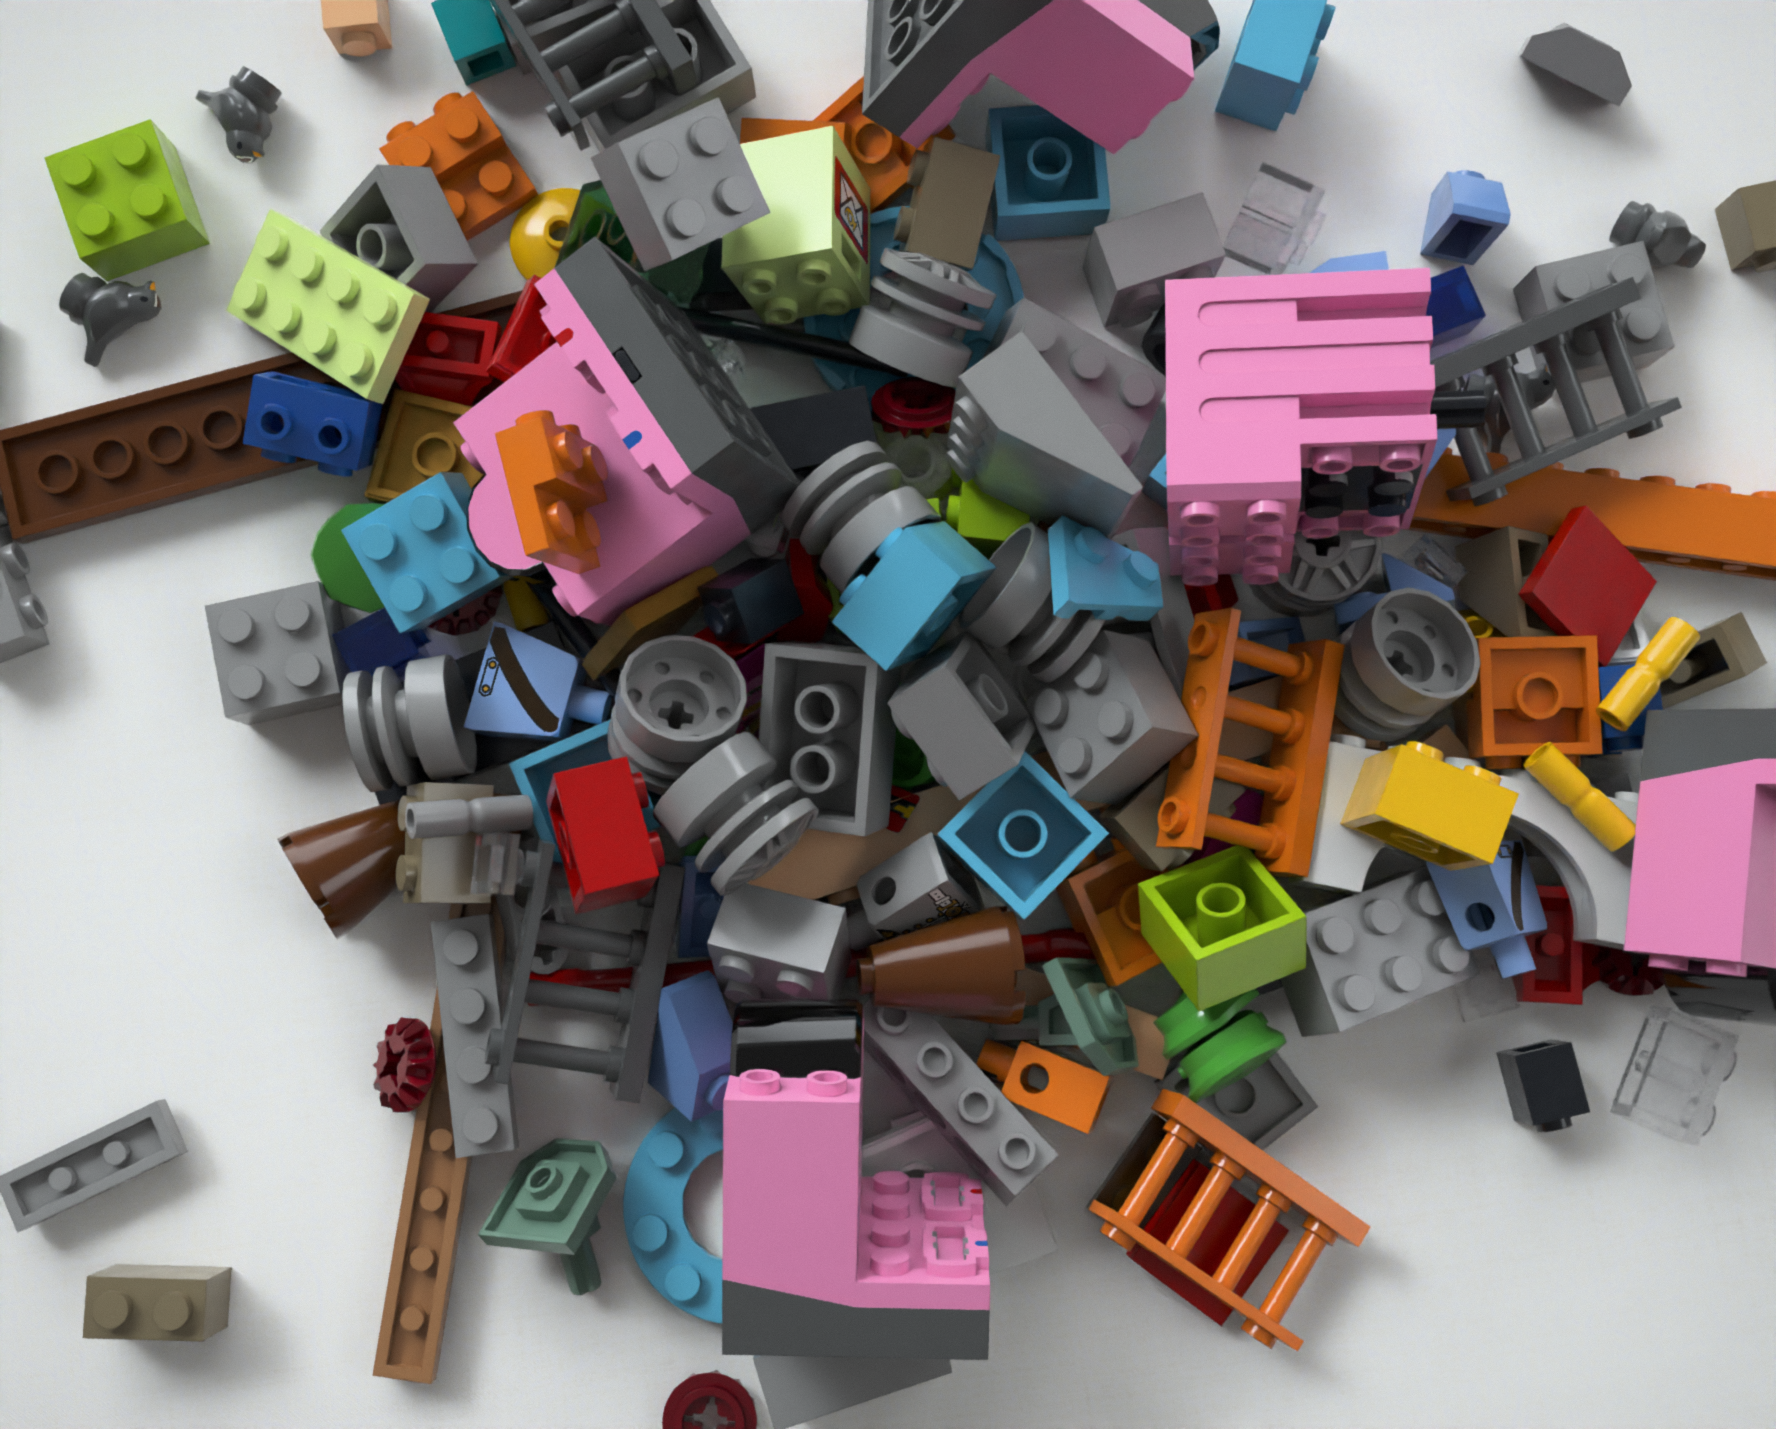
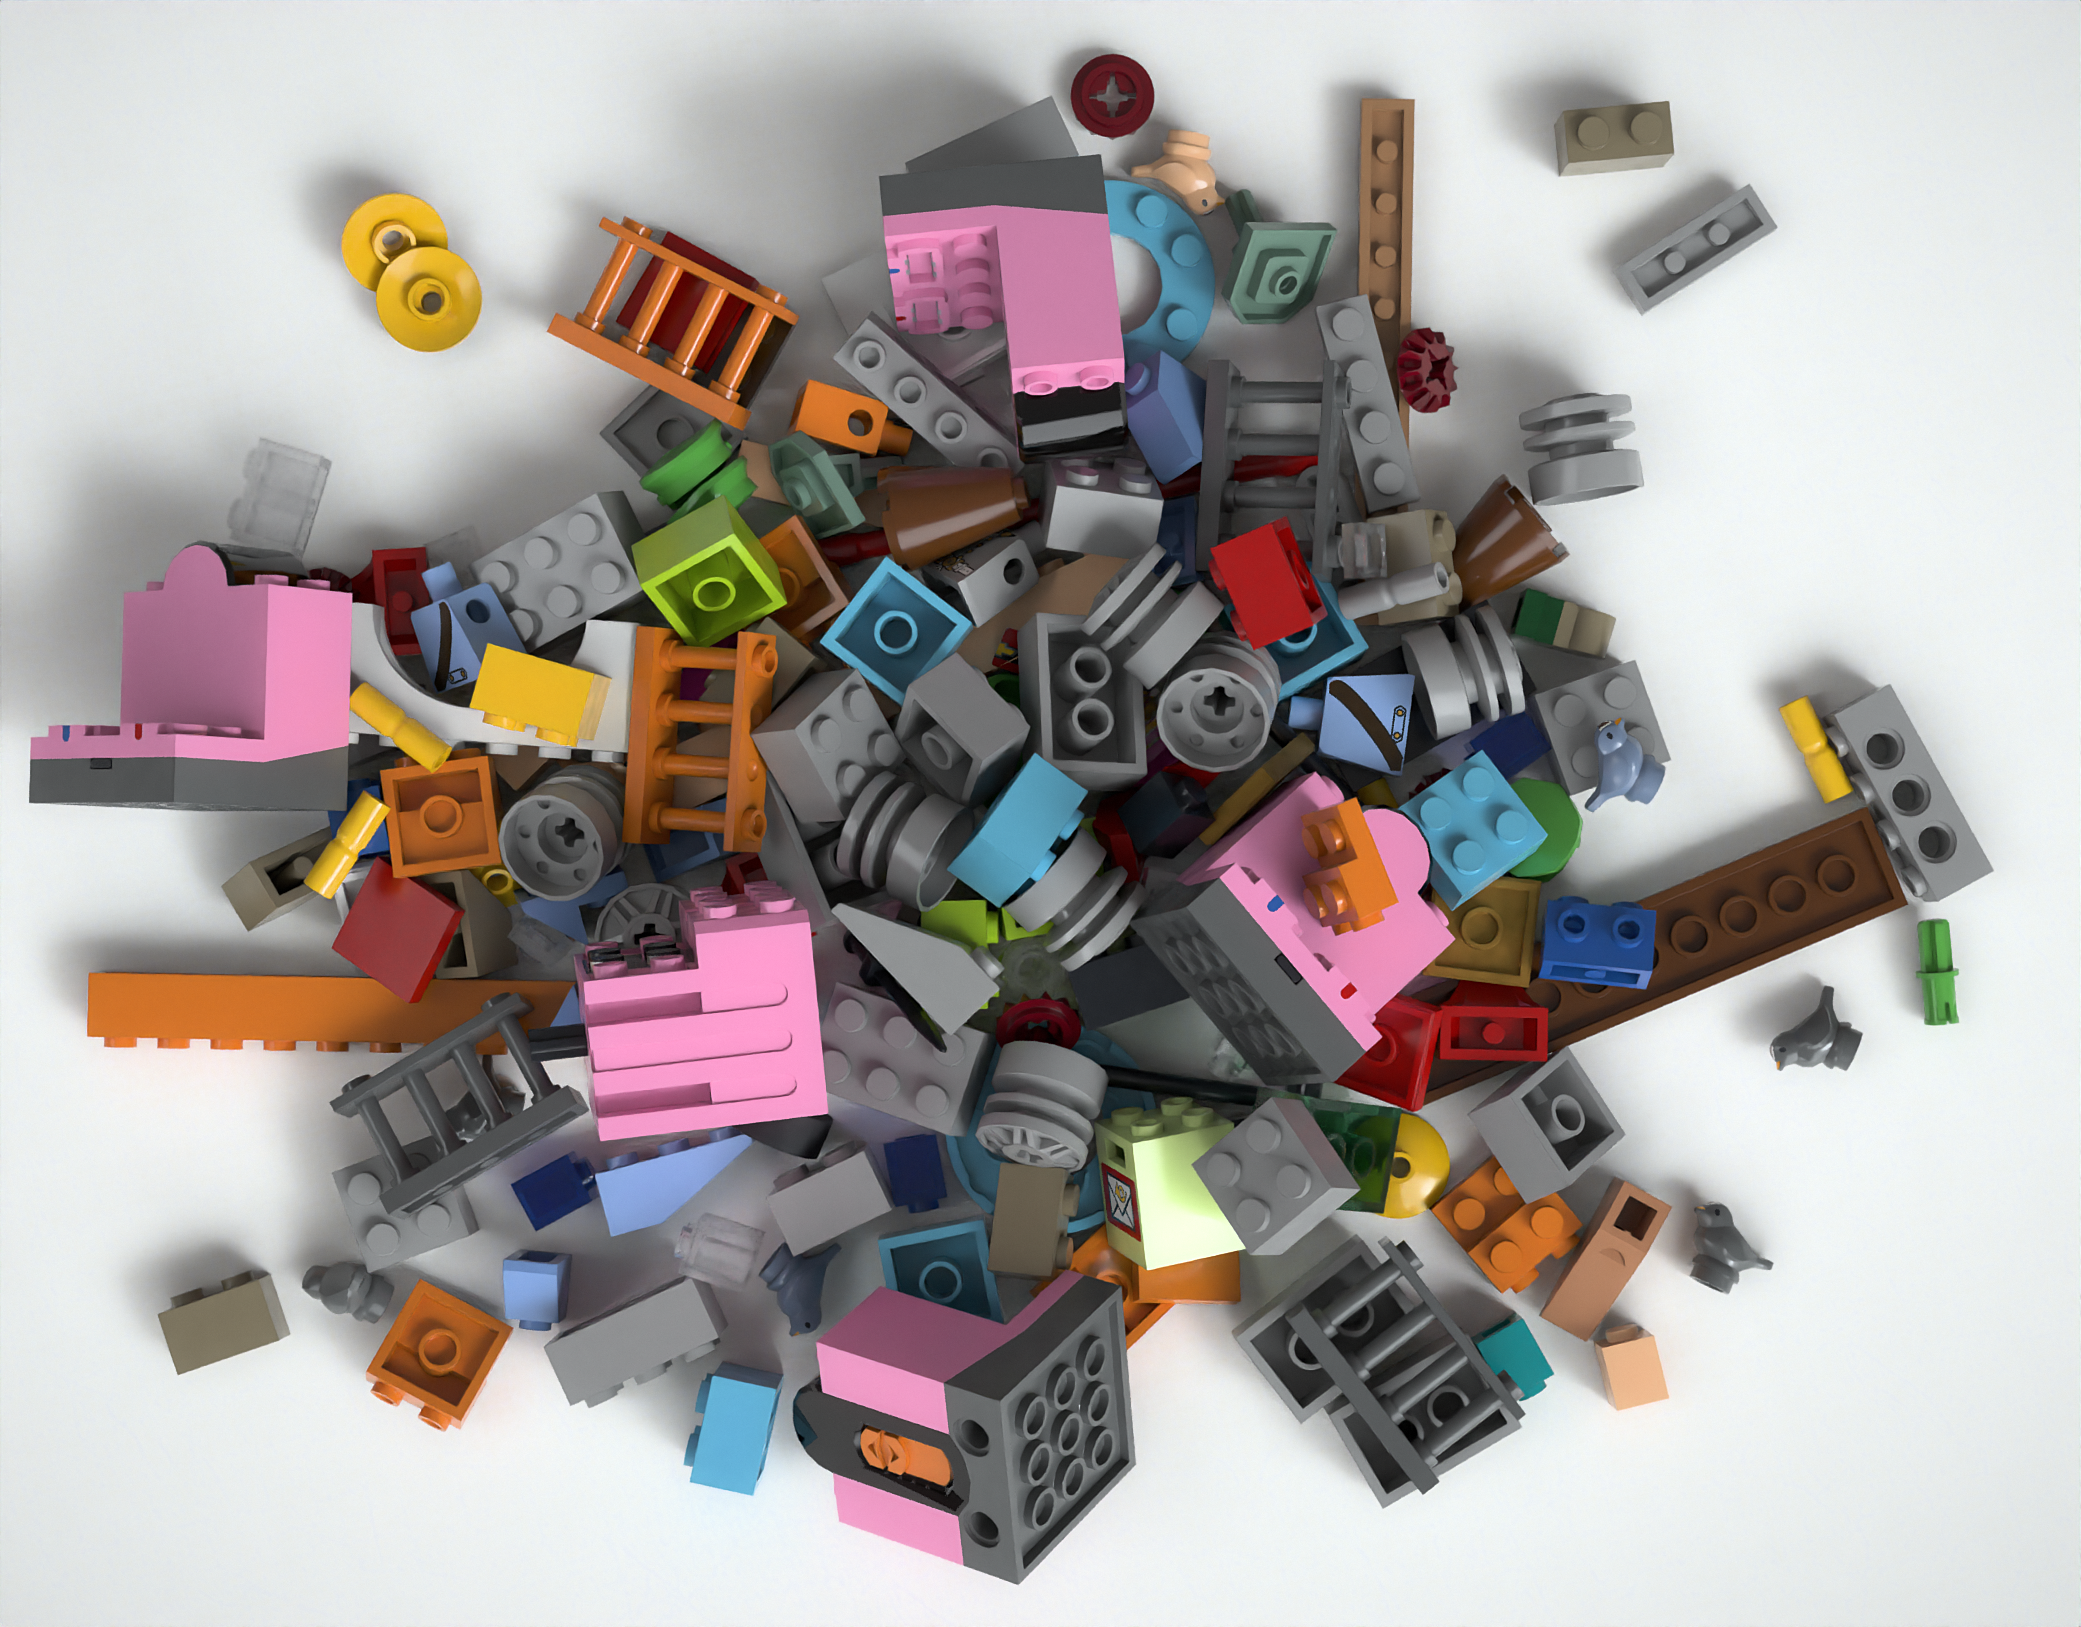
camera: 175 degrees right, 5 degrees up
(57, 602) = (1818, 754): none -> yellow piece
(126, 200) = (1816, 1146): lime brick -> none
(247, 954) = (1581, 449): none -> light grey wheel
(251, 595) = (1623, 767): none -> sand blue animal
(305, 771) = (1561, 625): none -> leg
(327, 306) = (1604, 1058): yellowish green plate -> none
(349, 123) = (1605, 1258): none -> nougat slope
(638, 1324) = (1185, 171): none -> light nougat animal
(1061, 281) = (916, 1171): none -> clear blue brick
(1100, 575) = (853, 863): medium azure wing -> none
(1196, 174) = (798, 1285): none -> sand blue animal
(1376, 140) = (636, 1340): none -> light grey brick
(1521, 1287) = (415, 277): none -> yellow dish
(1533, 1322) = (364, 230): none -> yellow dish
(1543, 1084) = (398, 477): black brick -> none
(1572, 159) = (437, 1356): none -> orange plate
(1580, 61) = (437, 1461): light grey slope -> none

